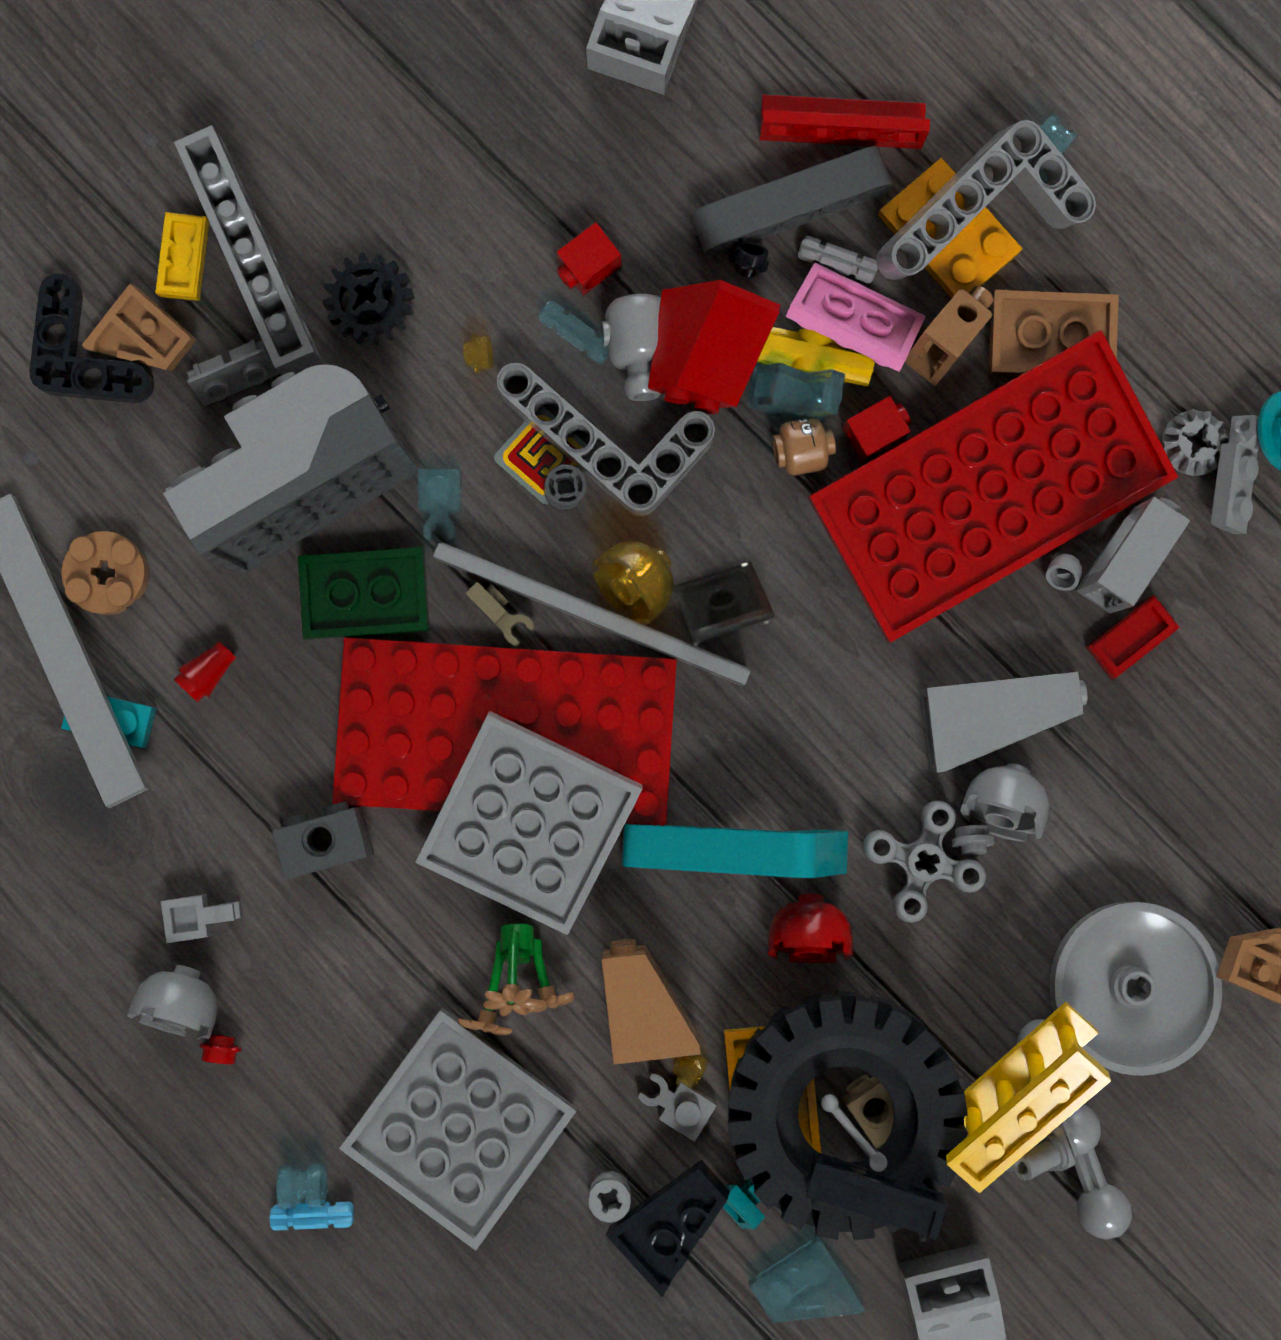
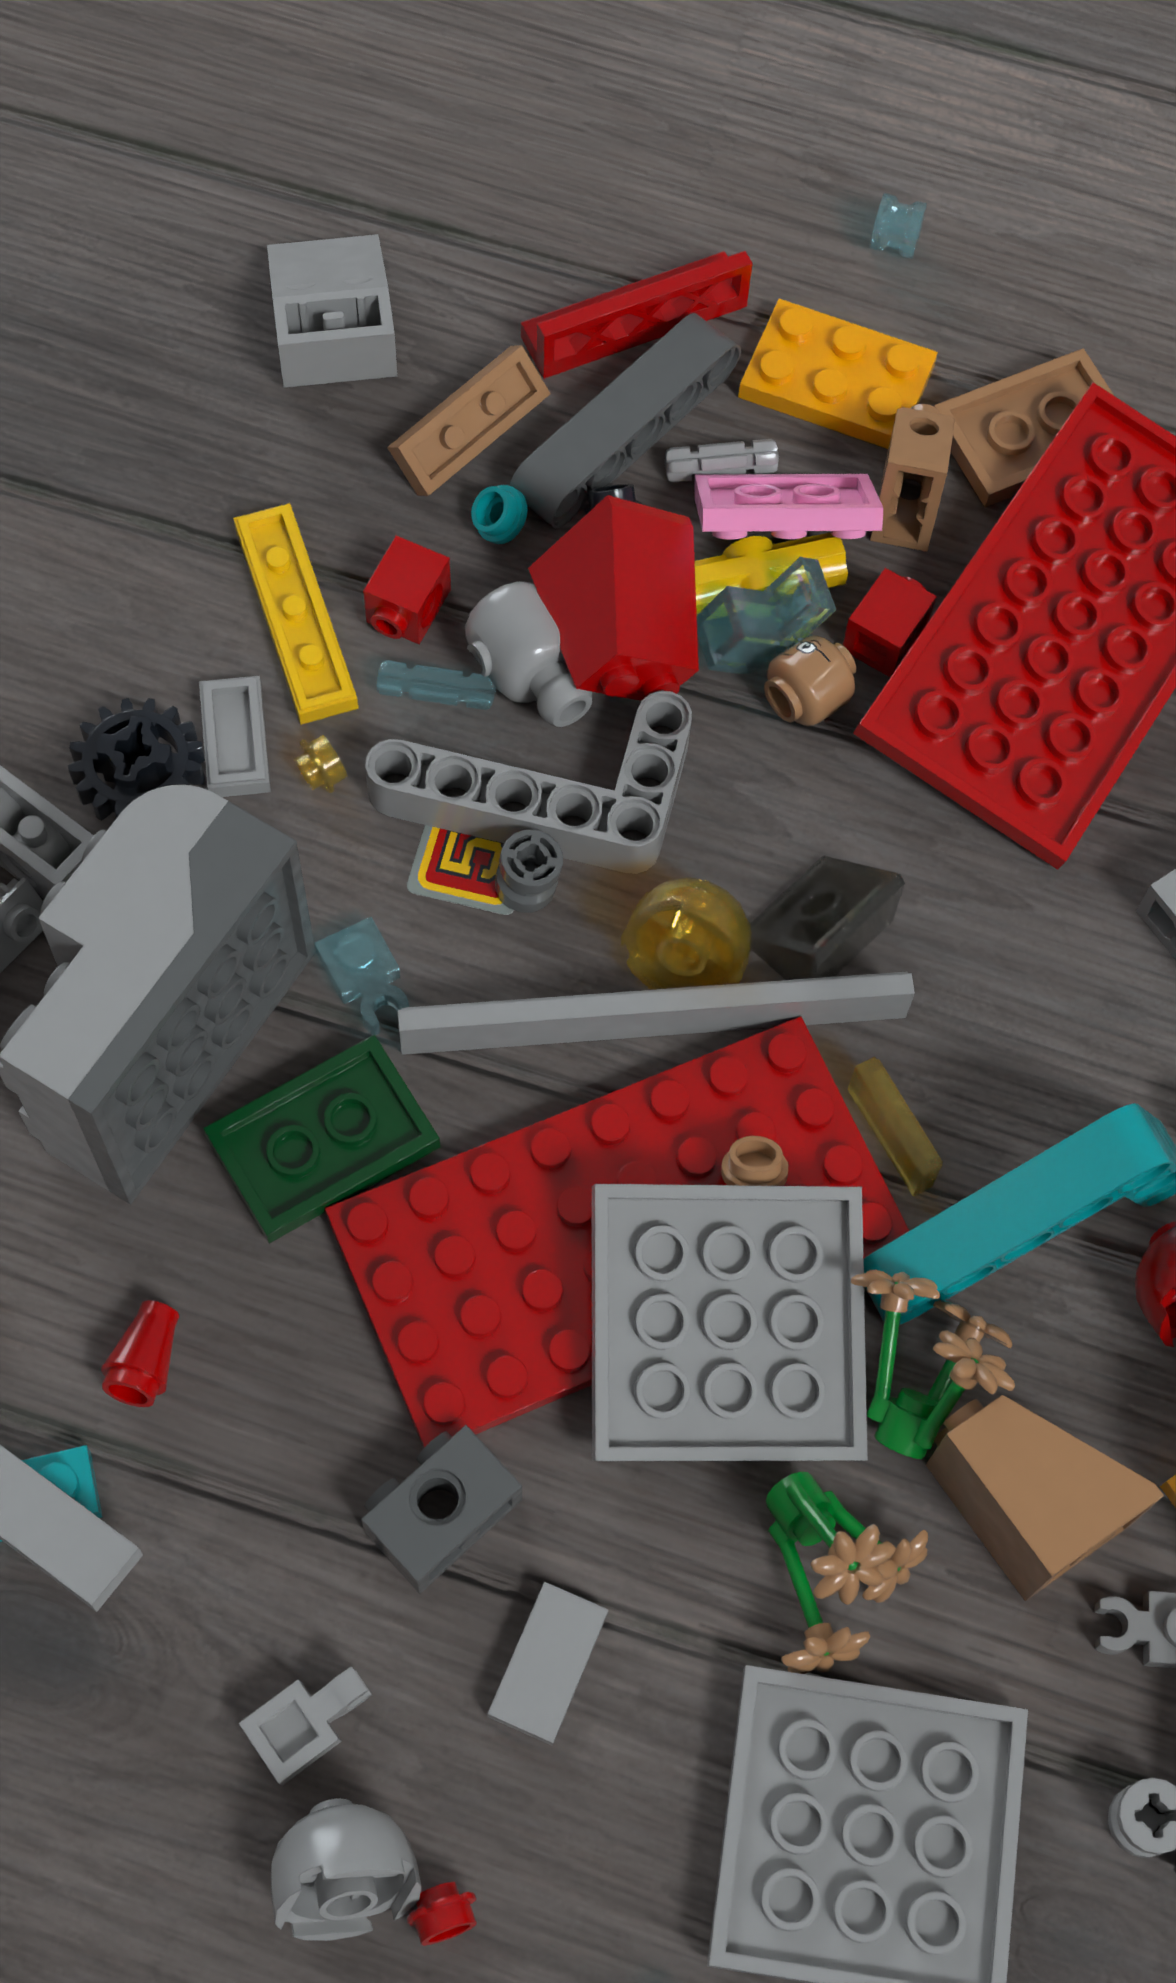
camera: 35 degrees left, 20 degrees down
(340, 951) = (548, 1663): none -> light grey tile
(438, 306) = (234, 736): none -> light grey tile
(492, 604) = (515, 1069): dark tan plate -> none
(516, 237) = (295, 614): none -> yellow tile
(592, 742) = (755, 1163): none -> medium nougat plate
(603, 926) = (912, 1418): none -> plant
(674, 231) = (499, 513): none -> teal plate
(690, 153) = (469, 420): none -> medium nougat plate
(690, 1070) = (1148, 1563): clear yellow plate -> none
(693, 753) = (895, 1126): none -> clear yellow tile
(979, 191) = (871, 250): light grey beam -> none

